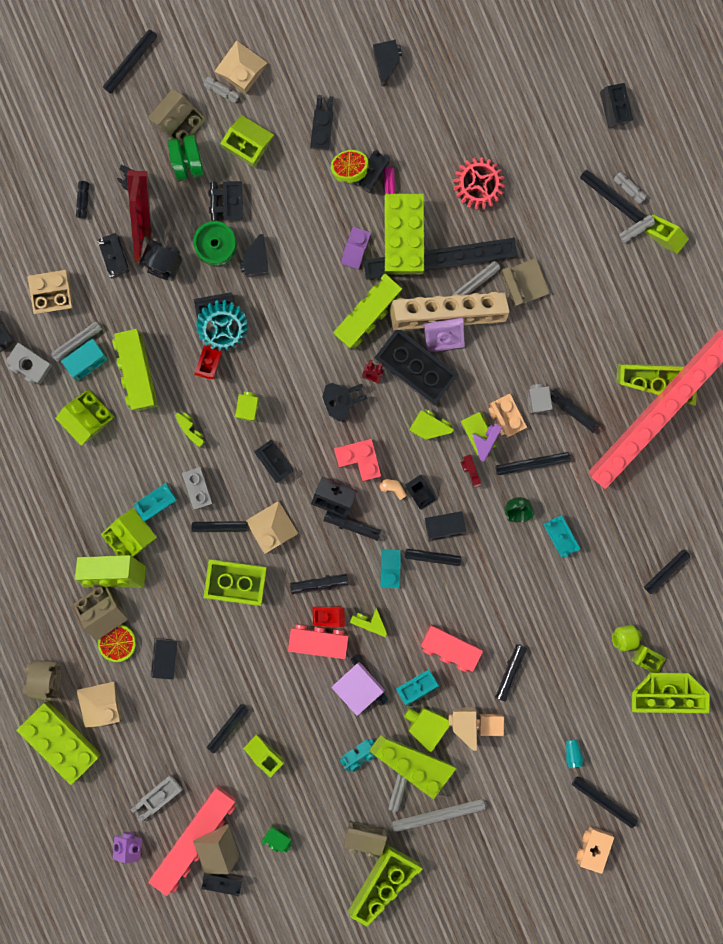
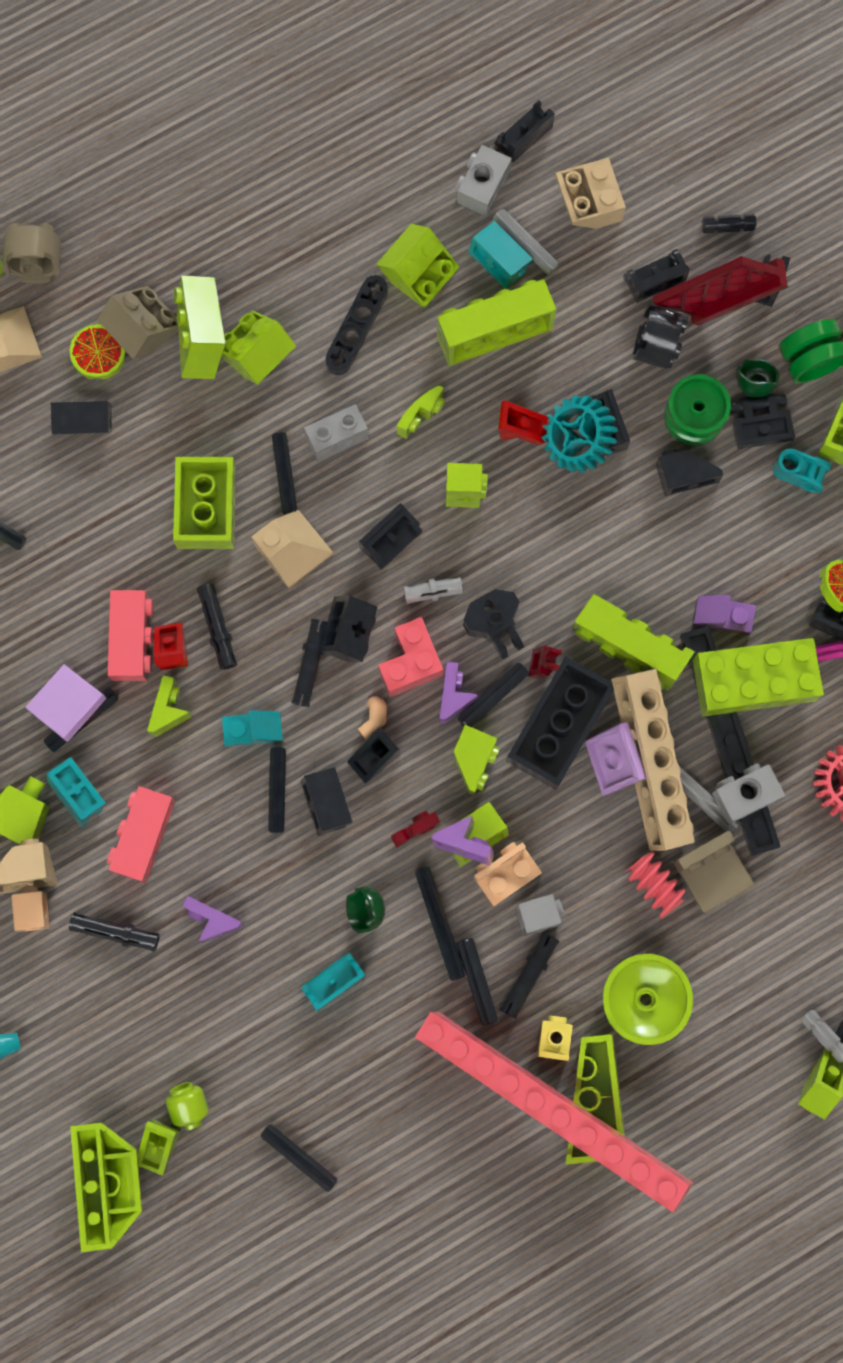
camera: 85 degrees right, 10 degrees down
(119, 467) = (360, 326): none -> black beam
(155, 502) = (307, 378): teal hinge -> none
(196, 199) = (757, 377): none -> dark green hair
(266, 177) = (807, 470): none -> teal piece
(313, 437) = (433, 590): none -> light grey pin
(389, 408) = (493, 695): none -> black axle
(391, 435) = (452, 701): none -> medium lavender slope
(478, 241) = (765, 789): none -> light grey brick
(514, 604) = (218, 922): none -> medium lavender slope
(527, 321) = (656, 884): none -> coral piece
(573, 444) = (477, 981): none -> black axle
(613, 335) = (669, 995): none -> lime dish
(622, 406) = (546, 1047): none -> light yellow brick

